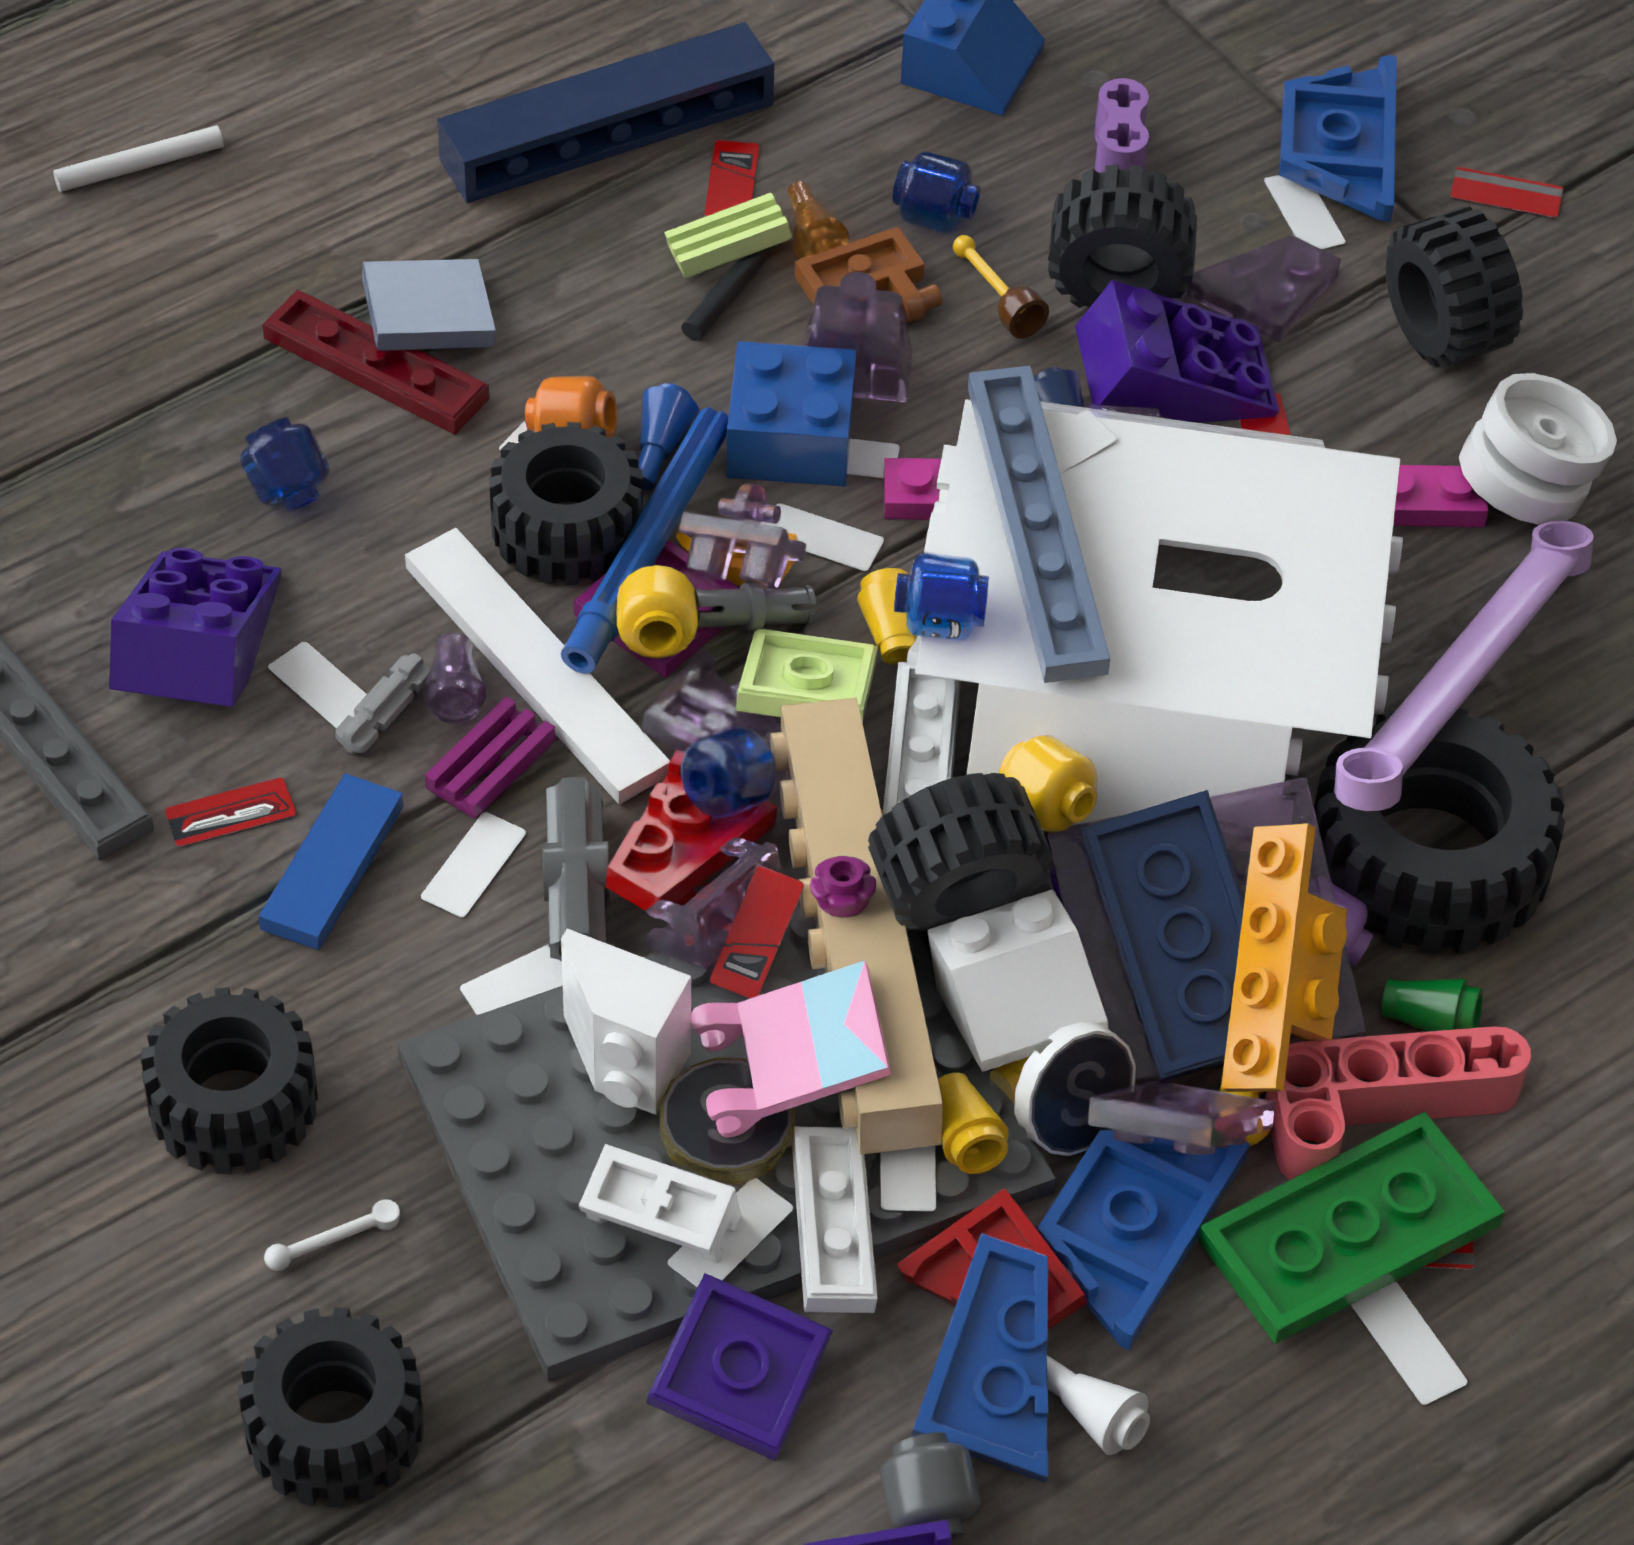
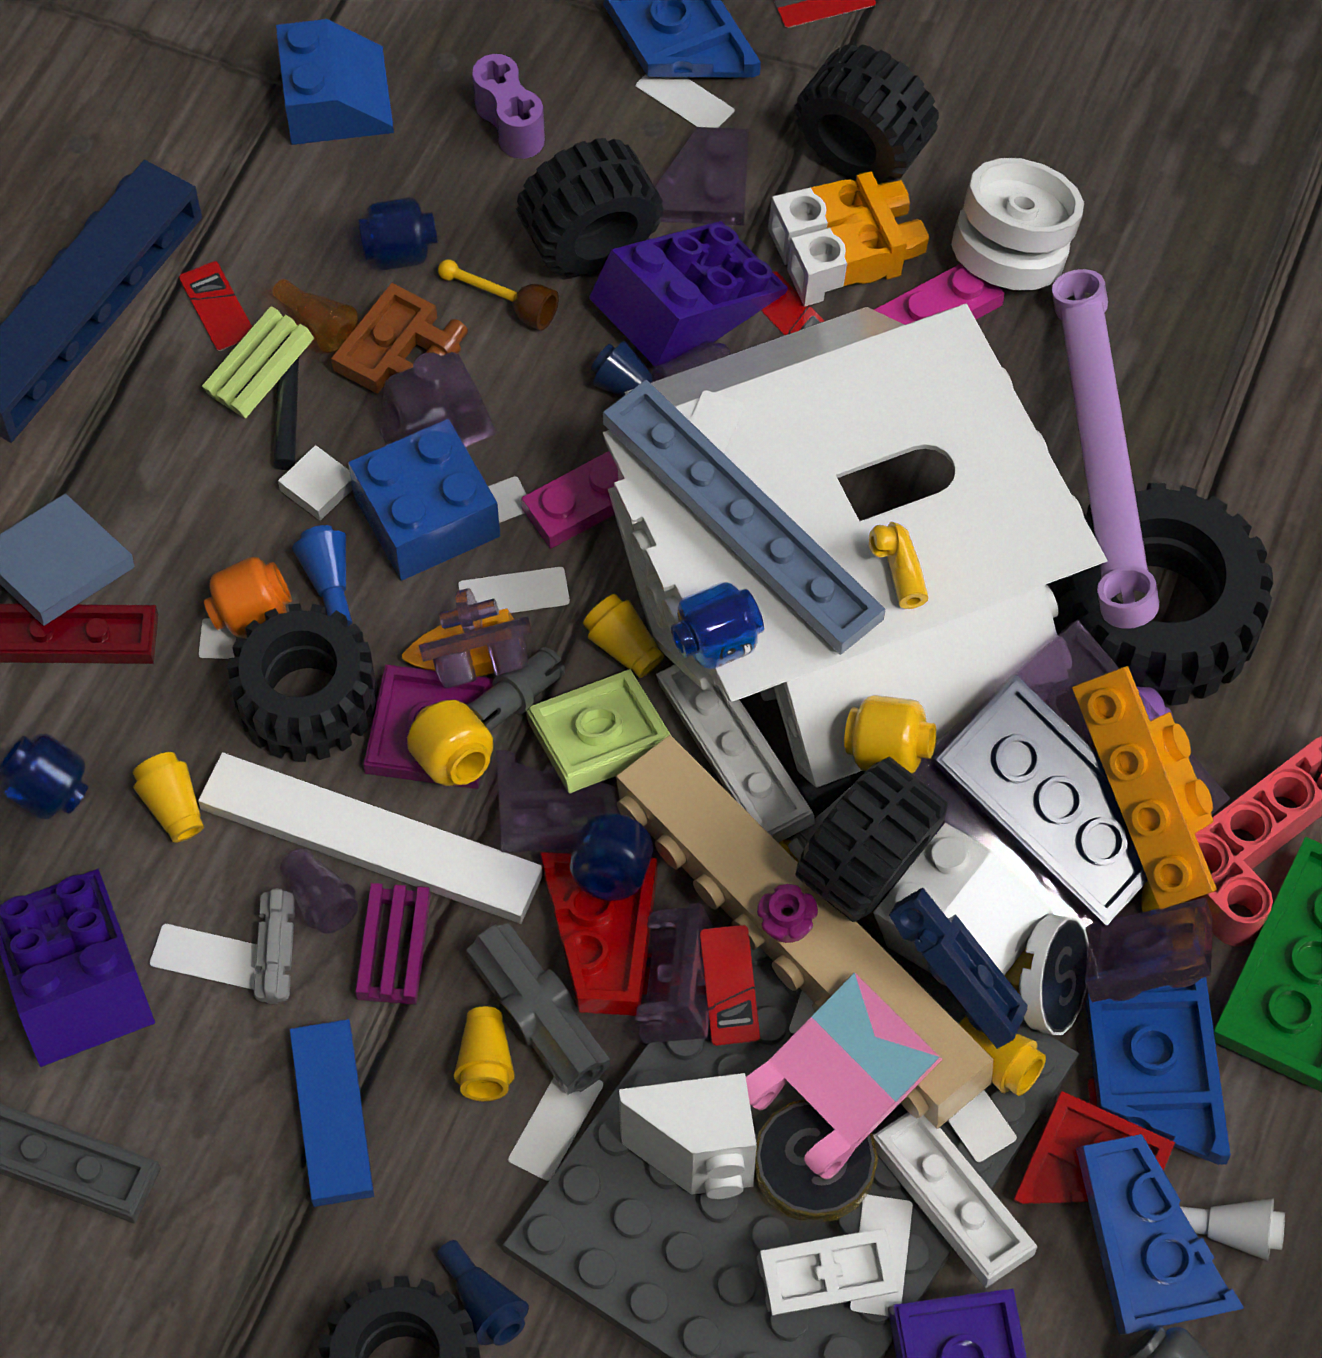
camera: 30 degrees left, 10 degrees up
(230, 811) = (212, 1115): sticker -> none
(347, 1087) = (493, 1308): none -> dark blue cone
(384, 534) = (169, 795): none -> yellow cone
(473, 864) = (440, 1037): white sticker -> none
(497, 885) = (484, 1056): none -> yellow cone
(598, 618) = (404, 773): blue axle -> none
(706, 359) = (316, 483): none -> white tile
(971, 1010) = (962, 965): none -> dark blue hinge
(1164, 636) = (904, 564): none -> yellow arm
(1367, 386) = (844, 234): none -> hips
(1433, 1004) = (1249, 741): green cone -> none

